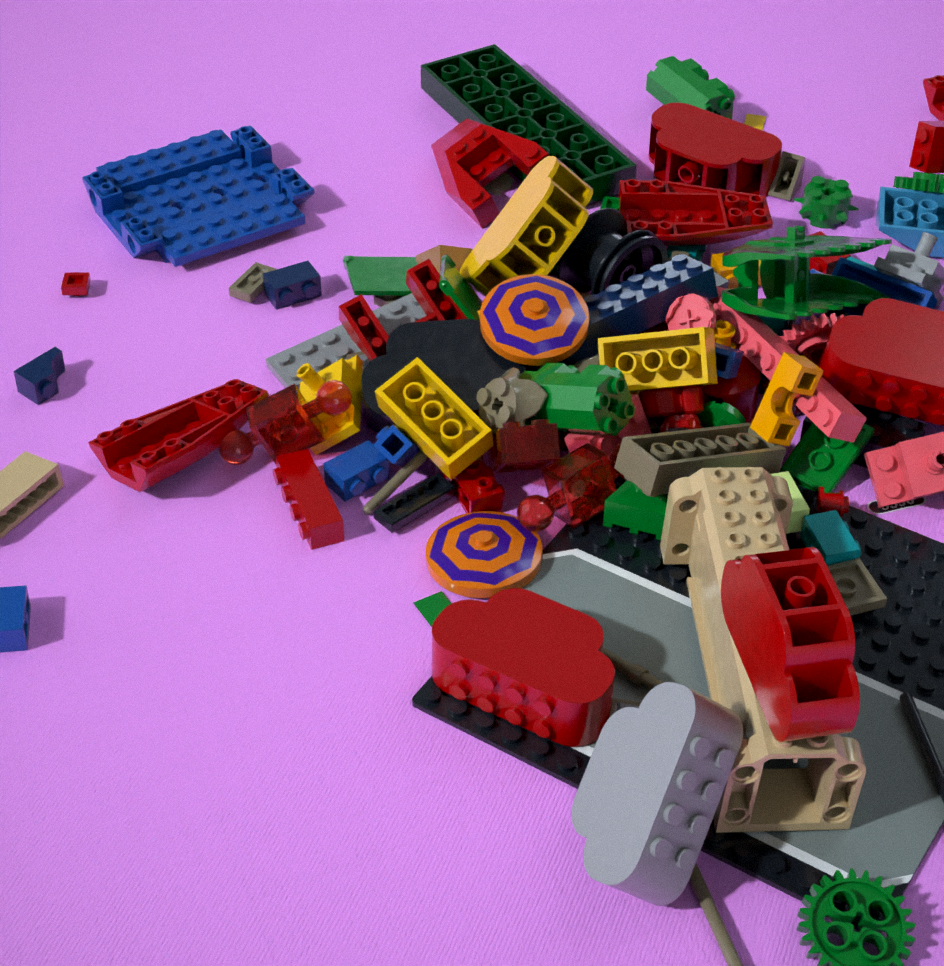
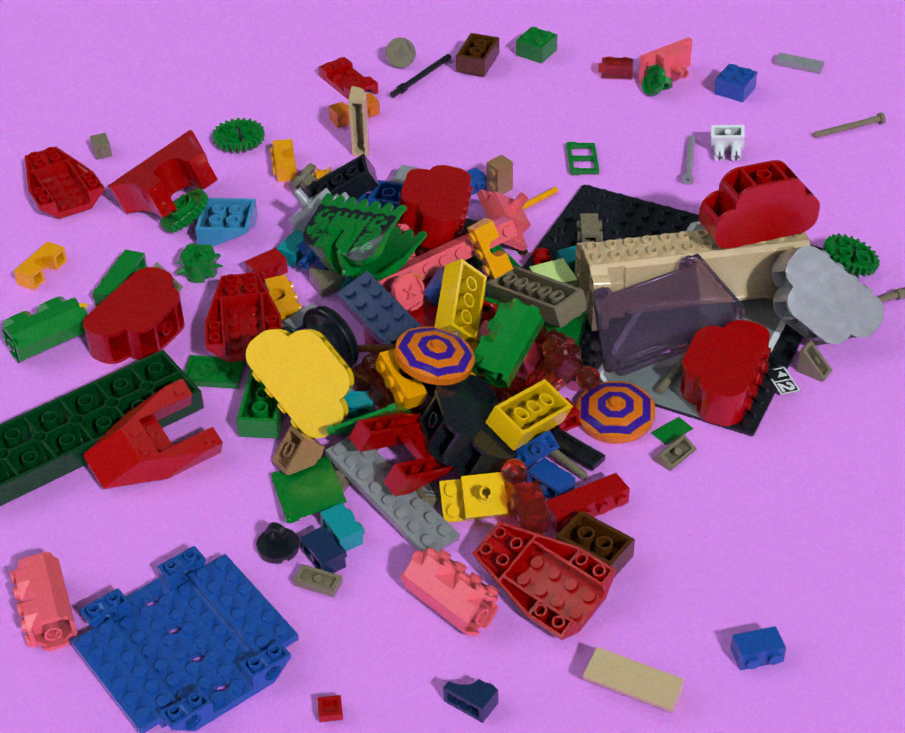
camera: 95 degrees left, 0 degrees up
(187, 360) = (451, 591): none -> coral brick
(222, 488) = (599, 540): none -> reddish brown brick
(275, 110) = (43, 602): none -> coral brick
(321, 254) = (277, 544): none -> black tile
(322, 298) = (342, 526): none -> teal brick
(389, 606) = (675, 453): none -> dark tan slope
(509, 400) = (502, 373): dark tan brick -> none
(520, 762) = (784, 382): none -> sticker
(552, 800) = (812, 362): none -> dark tan slope
(631, 573) = (661, 315): none -> clear purple windscreen
(809, 90) = (31, 273): none -> light orange arch
(820, 154) = (124, 267): none -> green brick
(902, 561) = (589, 228): none -> dark tan brick

